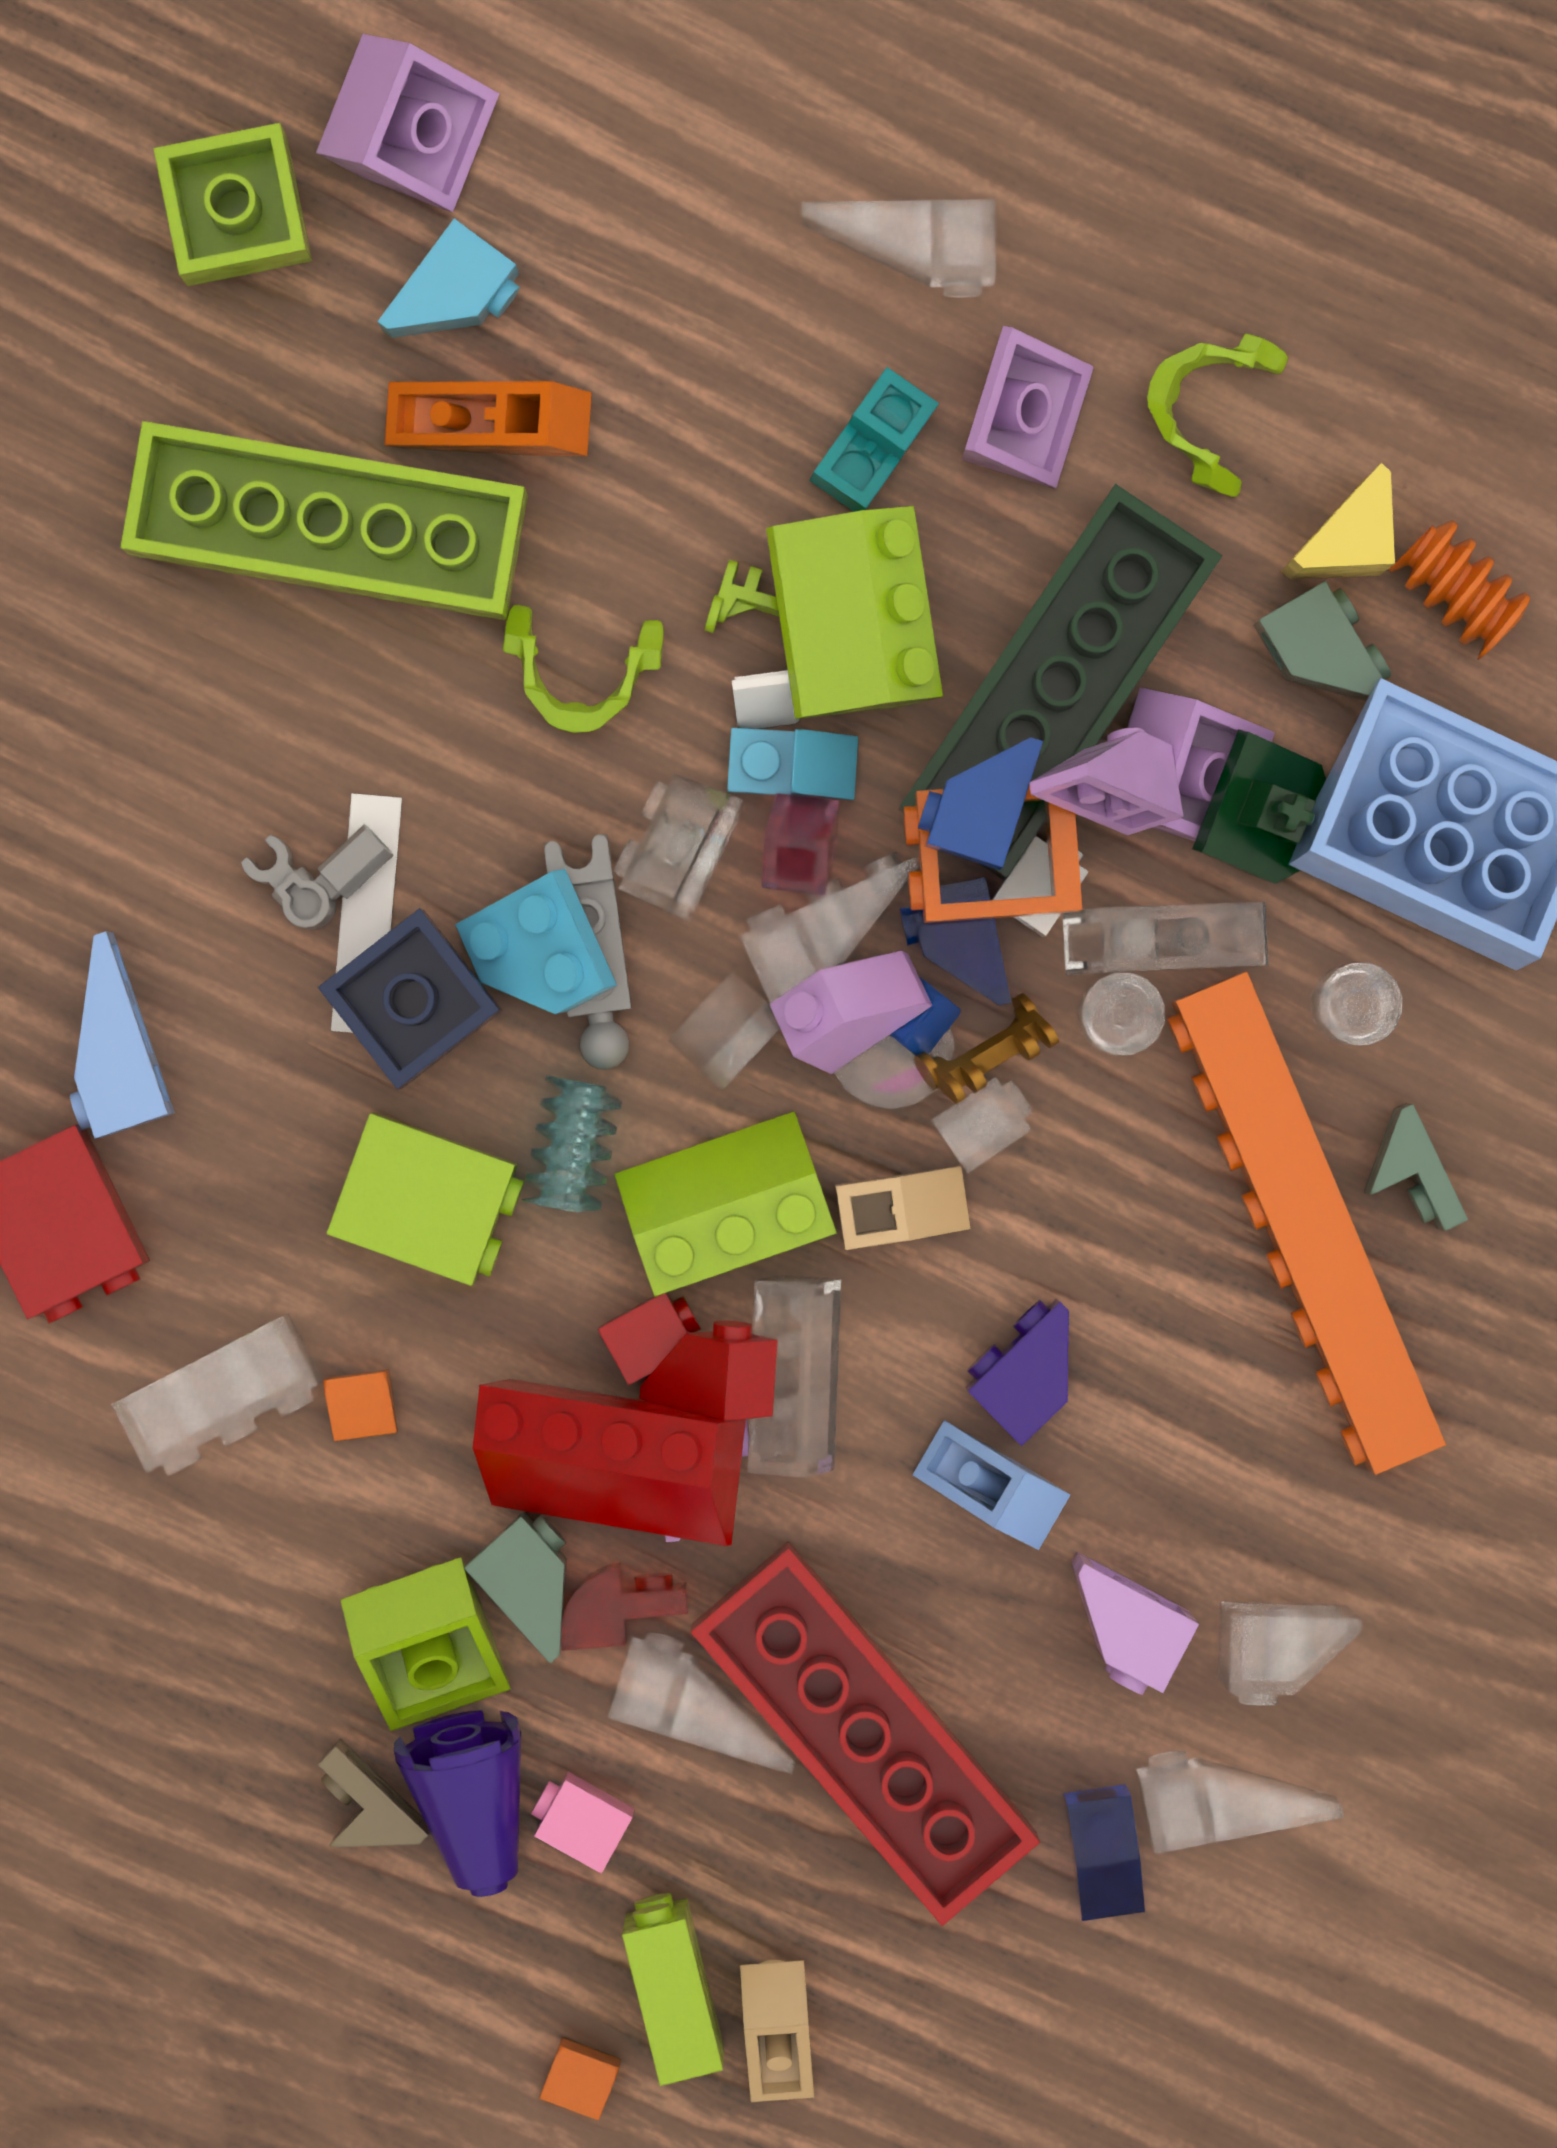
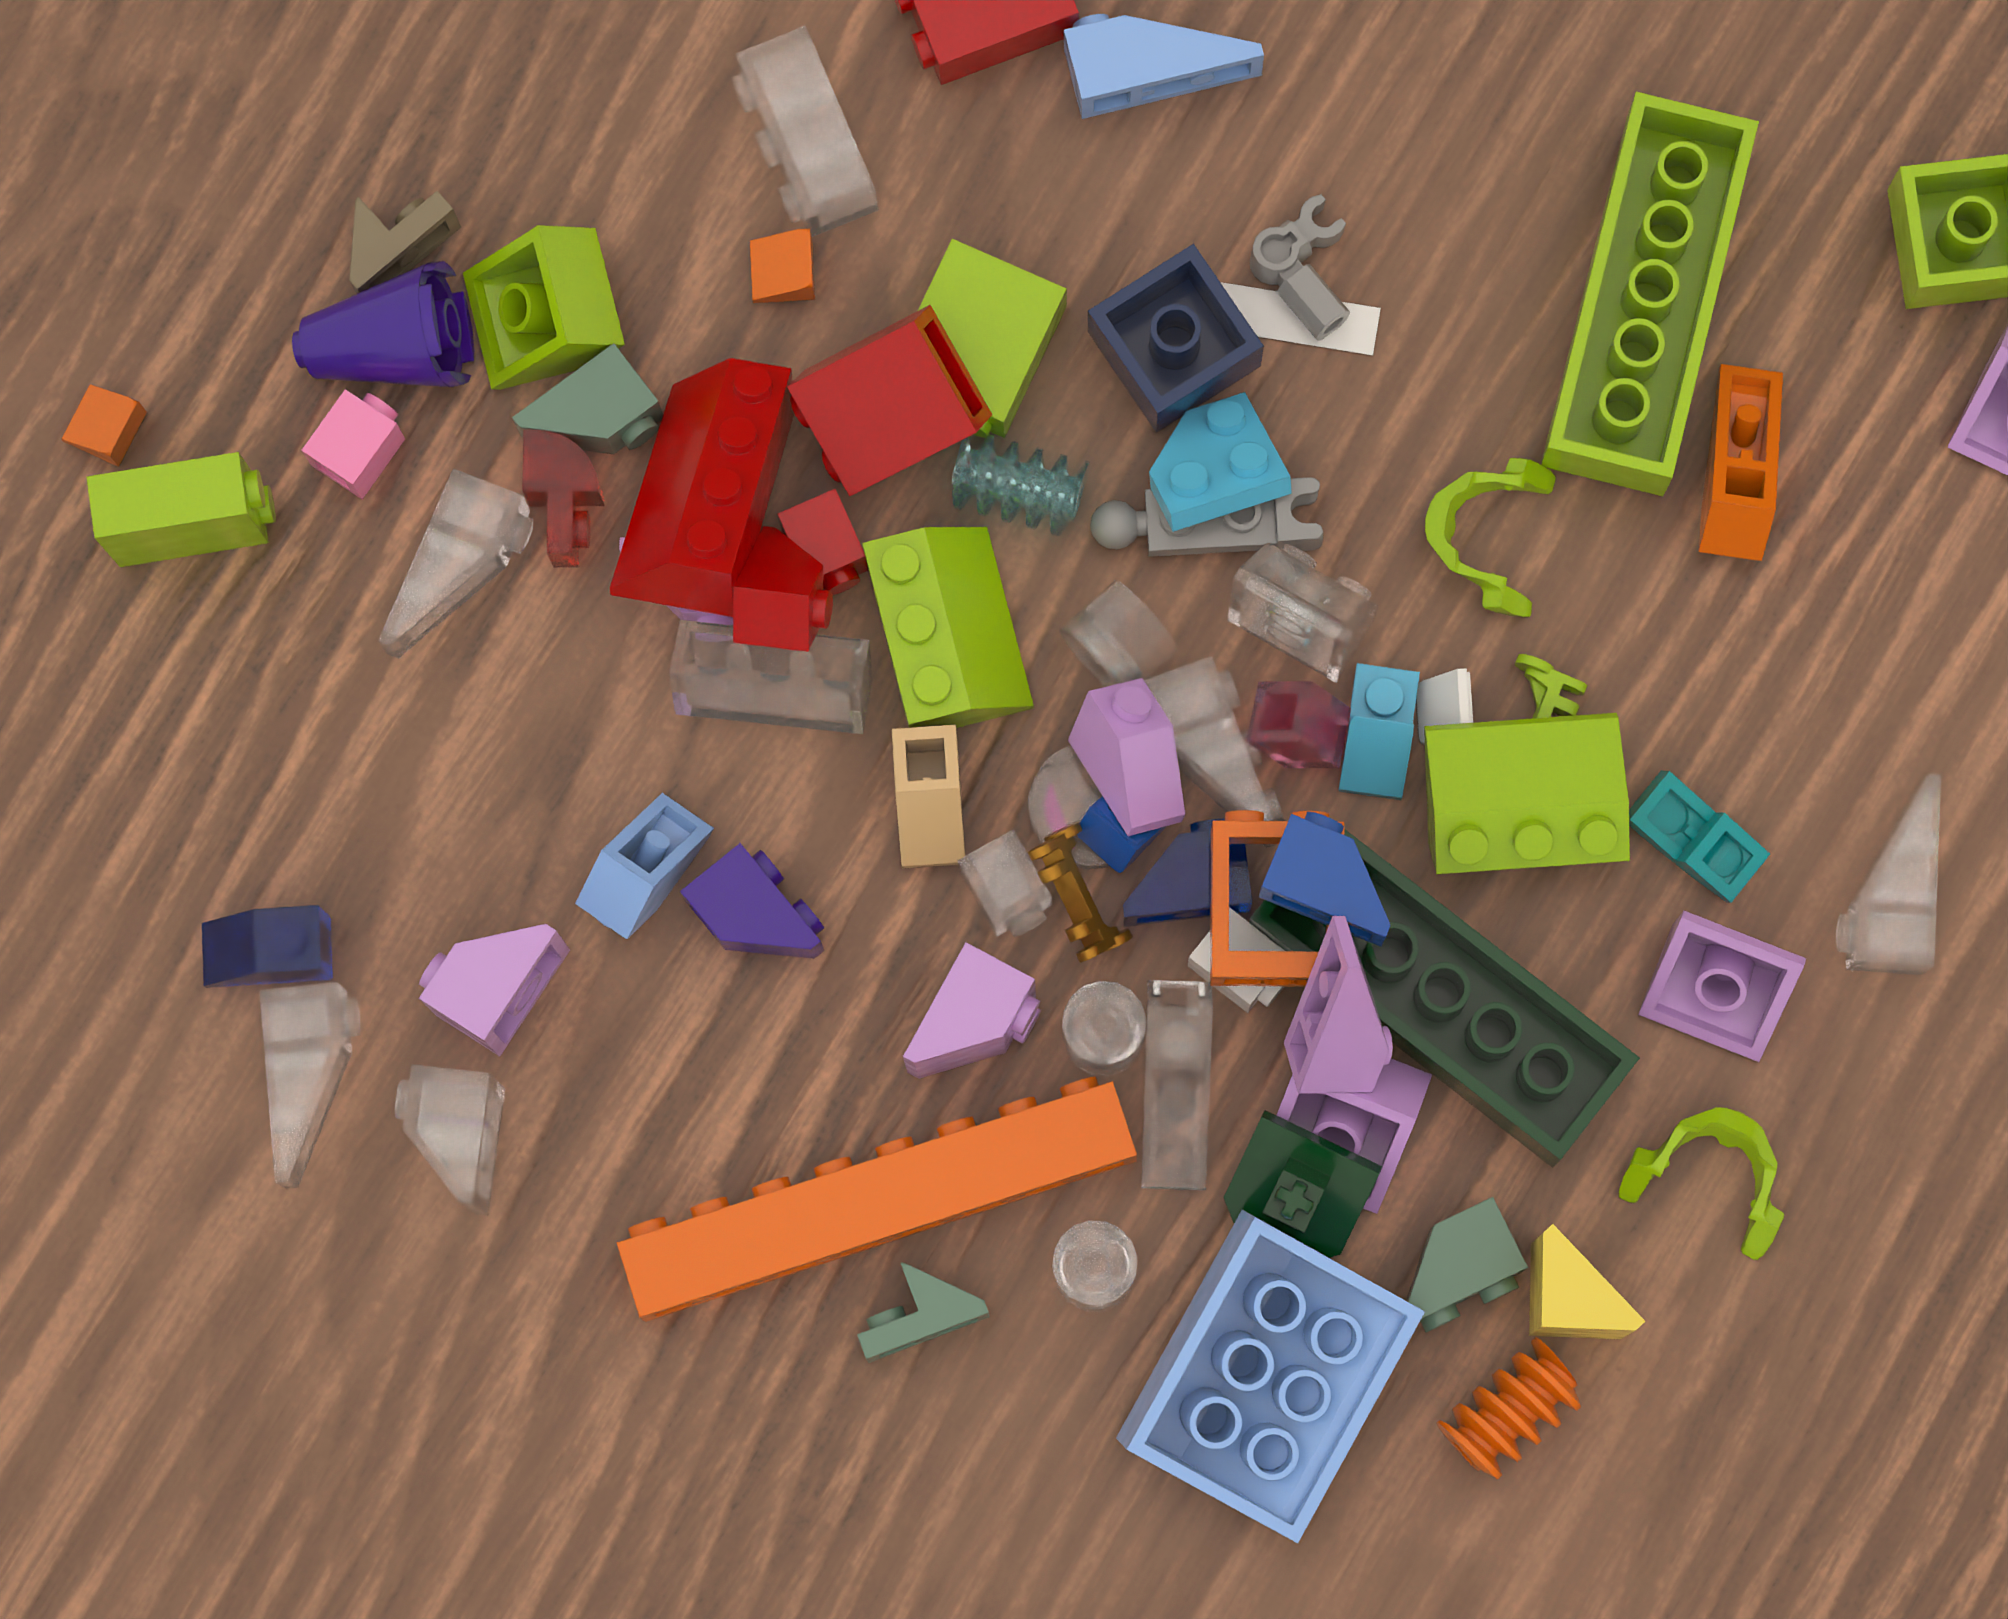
camera: 100 degrees right, 10 degrees down
(453, 286) = (1873, 435): medium azure slope -> none
(506, 1282) = (888, 401): none -> red brick
(777, 2030) = (128, 612): tan slope -> none
(865, 1733) = (411, 717): red brick -> none
(1121, 1142) = (973, 1015): none -> lavender slope

